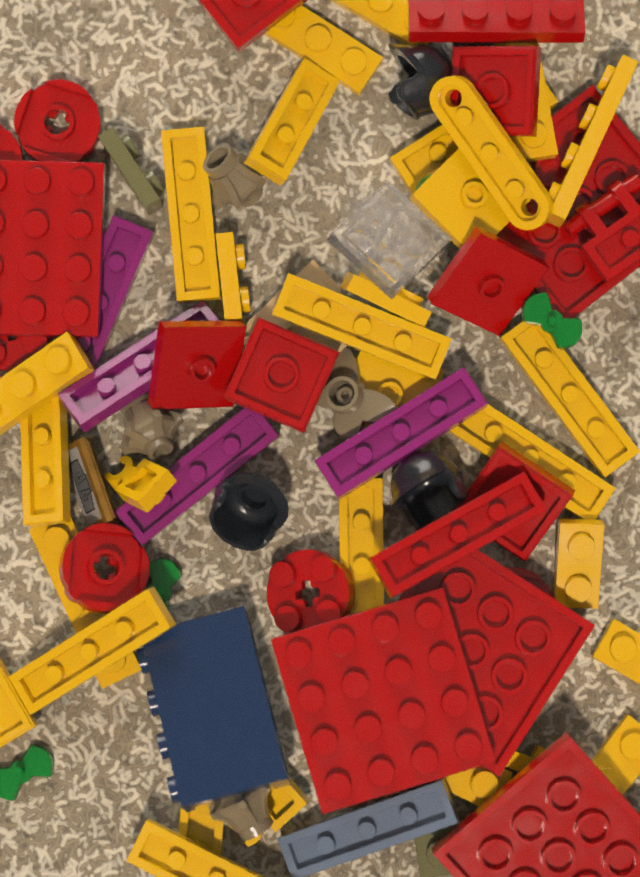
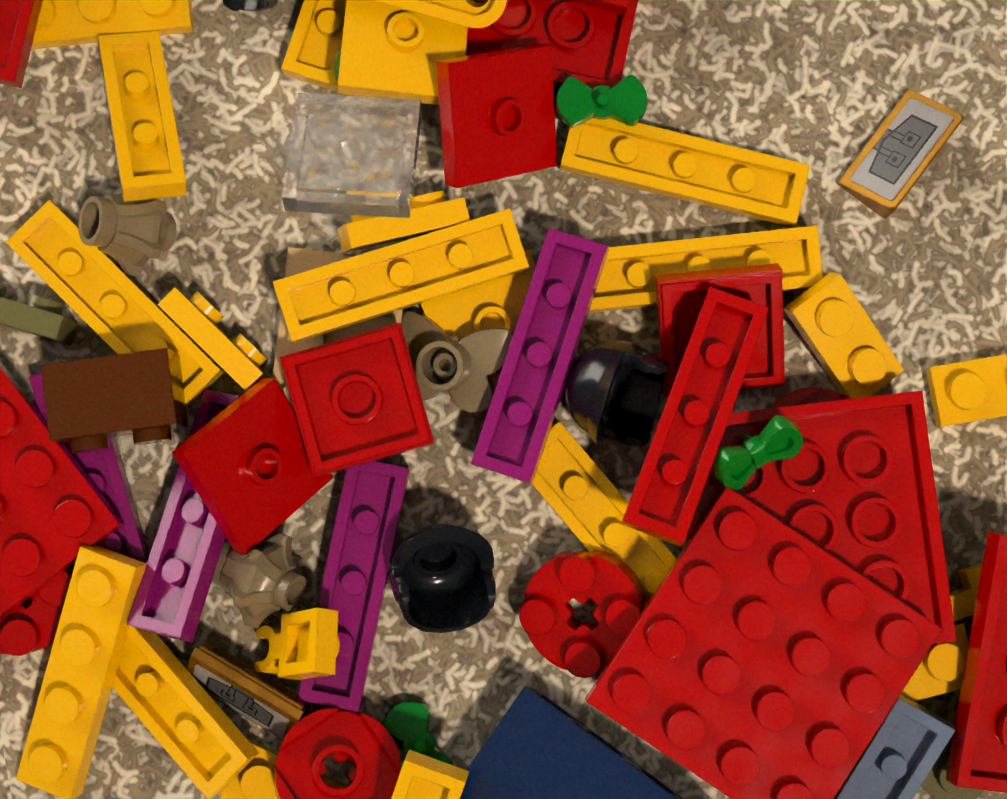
camera: 40 degrees left, 0 degrees up
(151, 266) = (114, 398): none -> reddish brown brick
(489, 585) = (777, 441): none -> green piece

